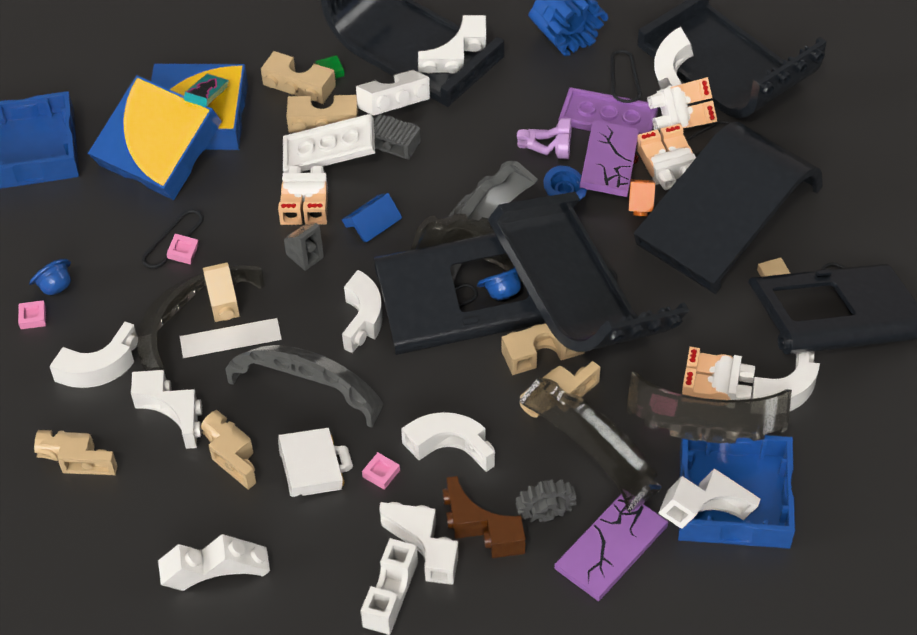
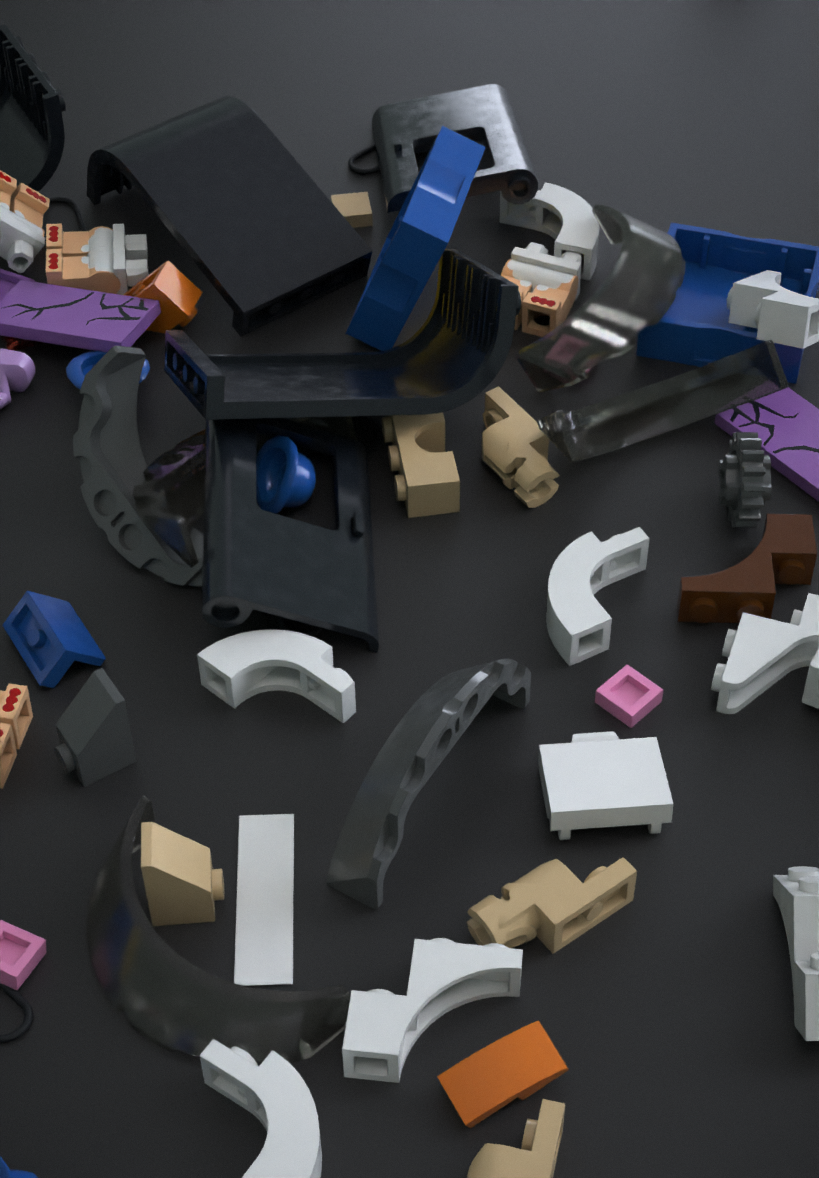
camera: 80 degrees left, 5 degrees down
(135, 441) = (502, 1072): none -> orange slope
(708, 288) = (416, 240): none -> blue tile

